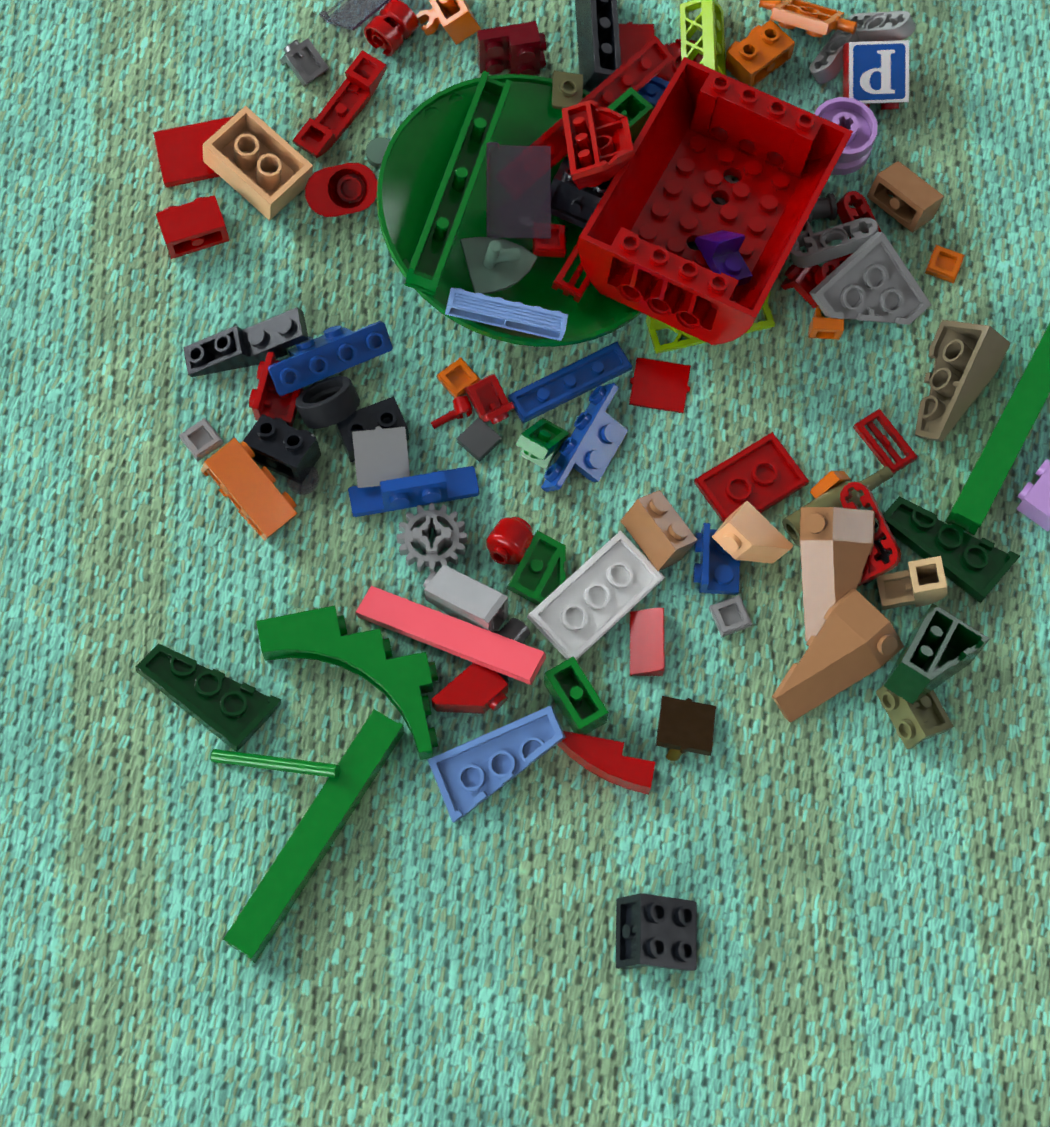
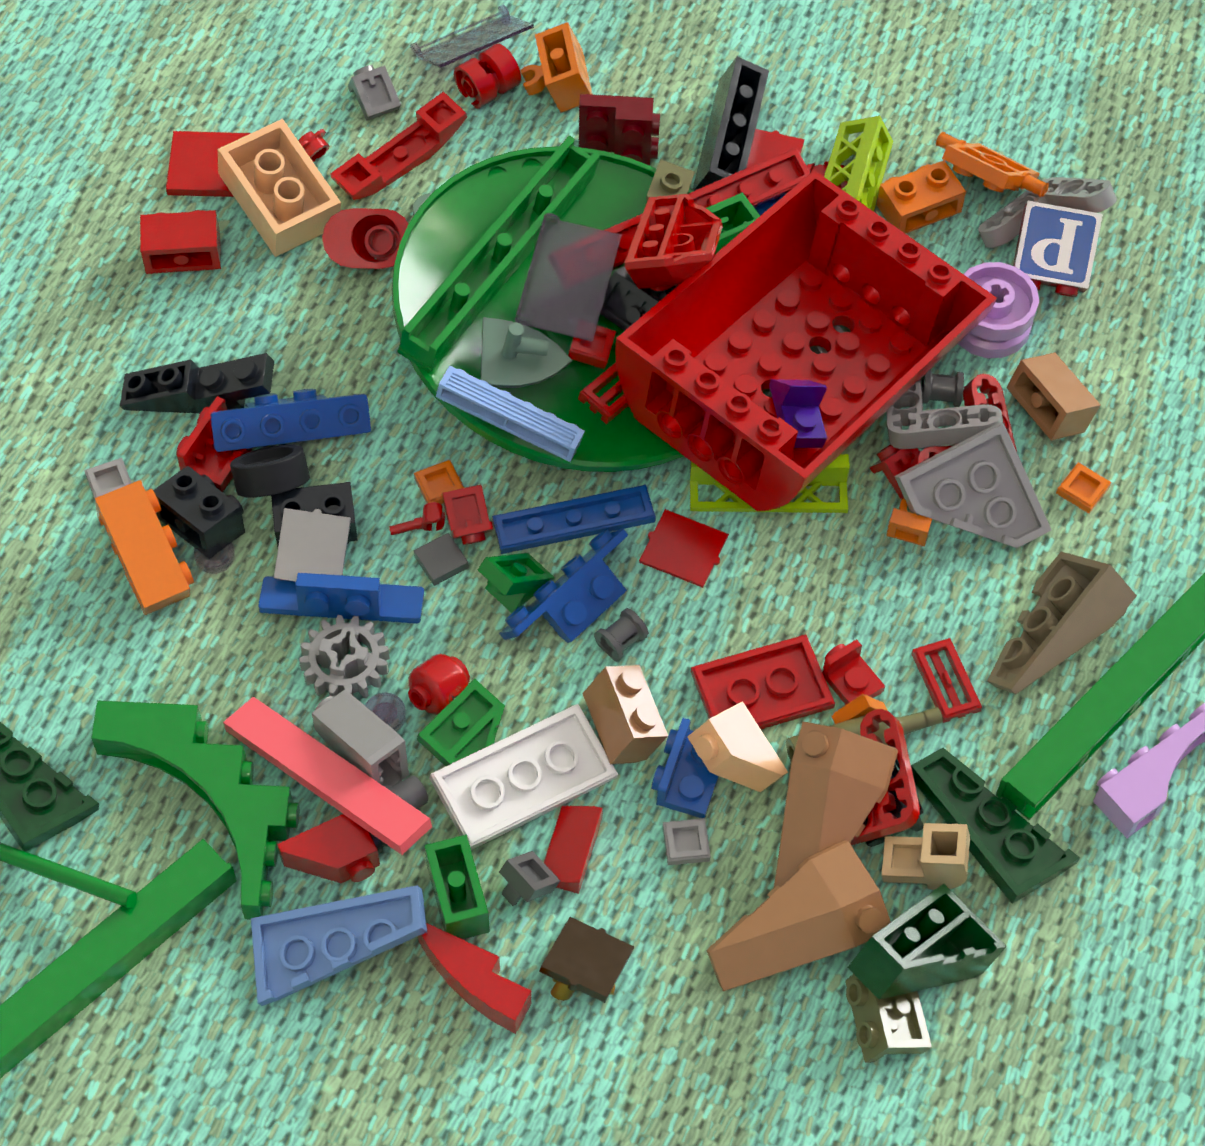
camera: 15 degrees right, 10 degrees down
(271, 118) = (314, 144): none -> red plate
(477, 569) = (388, 708): none -> tile
(624, 676) = (527, 878): none -> dark grey tile
(635, 466) = (621, 634): none -> dark grey bush
(815, 456) = (850, 674): none -> red bracket

